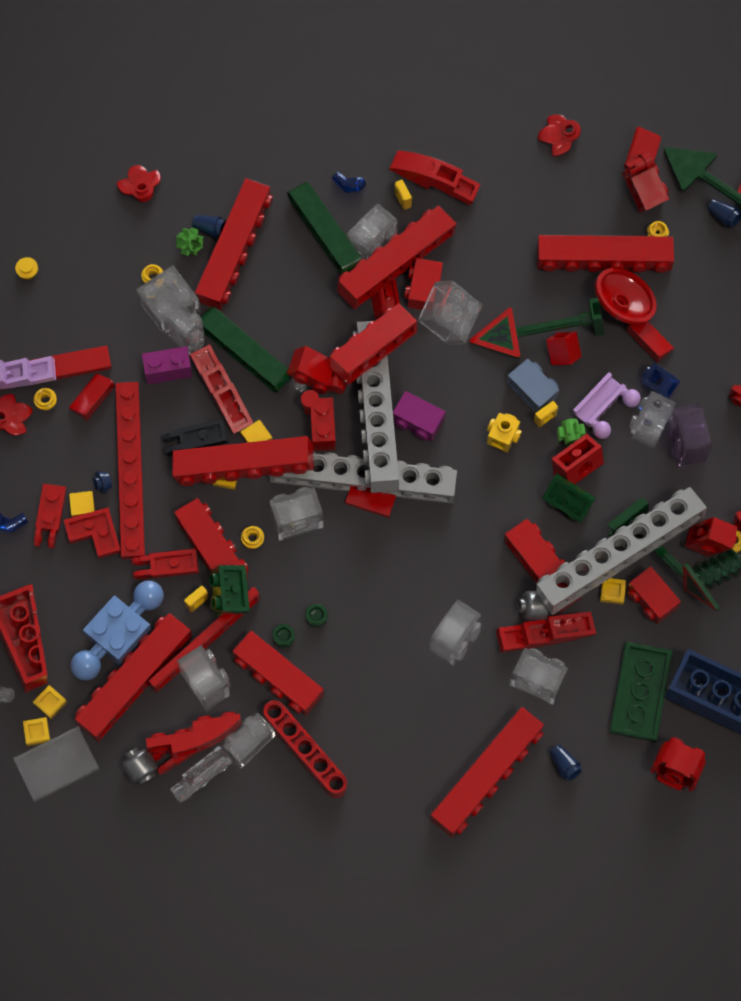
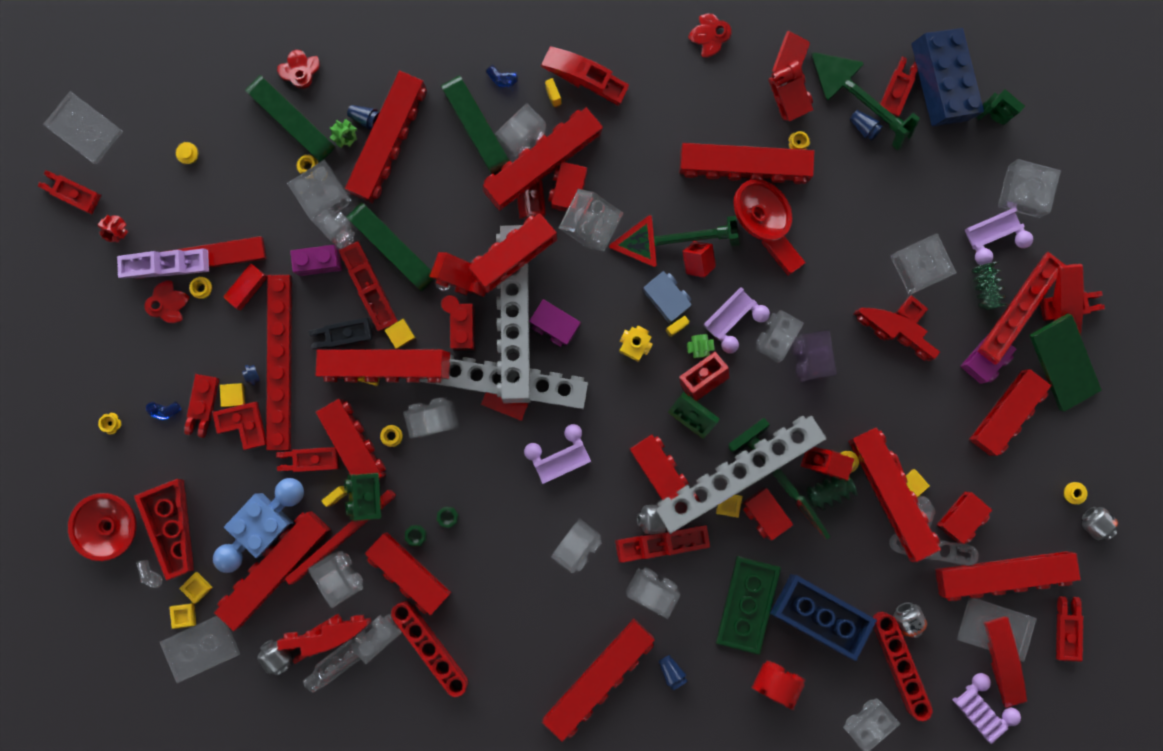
camera: 10 degrees right, 15 degrees up
(133, 230) = (290, 118): none -> dark green beam
(434, 553) = (561, 461): none -> lavender gear
(656, 372) = (780, 297): clear blue brick -> none

